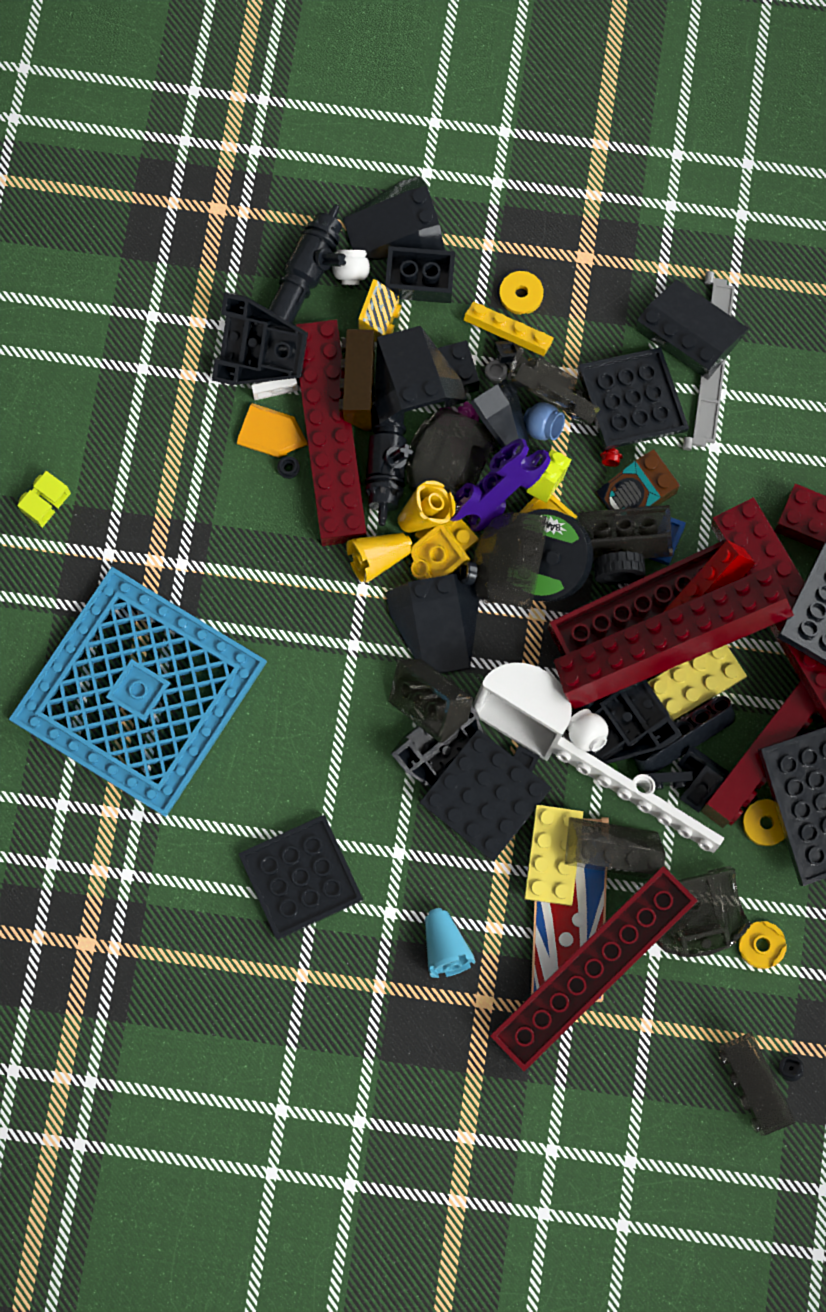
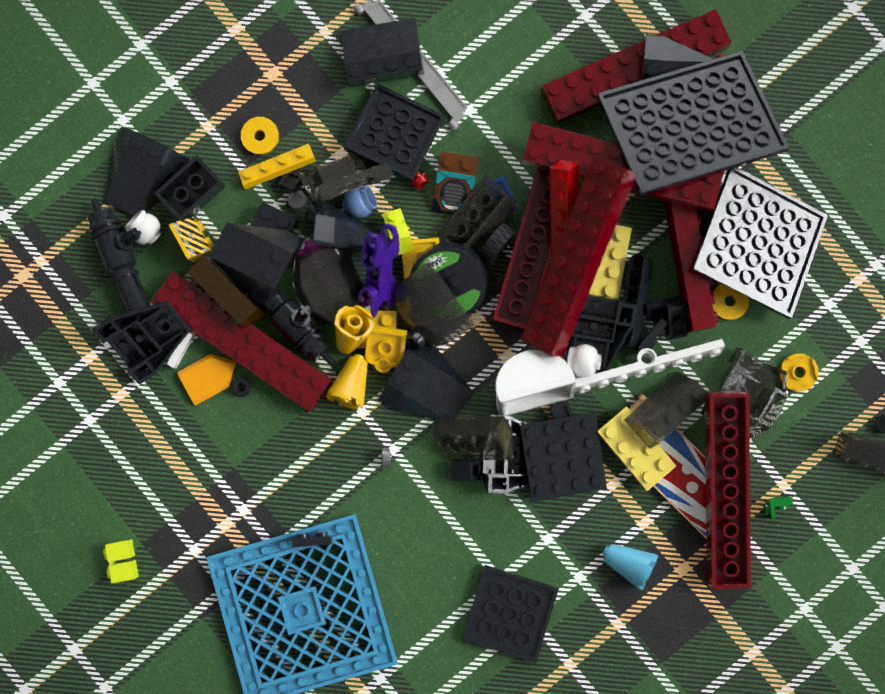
camera: 50 degrees left, 10 degrees up
(217, 646) = (321, 538): none -> black plate
(340, 643) = (386, 458): none -> flat silver tile
(393, 721) = (465, 470): none -> black brick
(627, 1034) = (780, 503): none -> green bracket

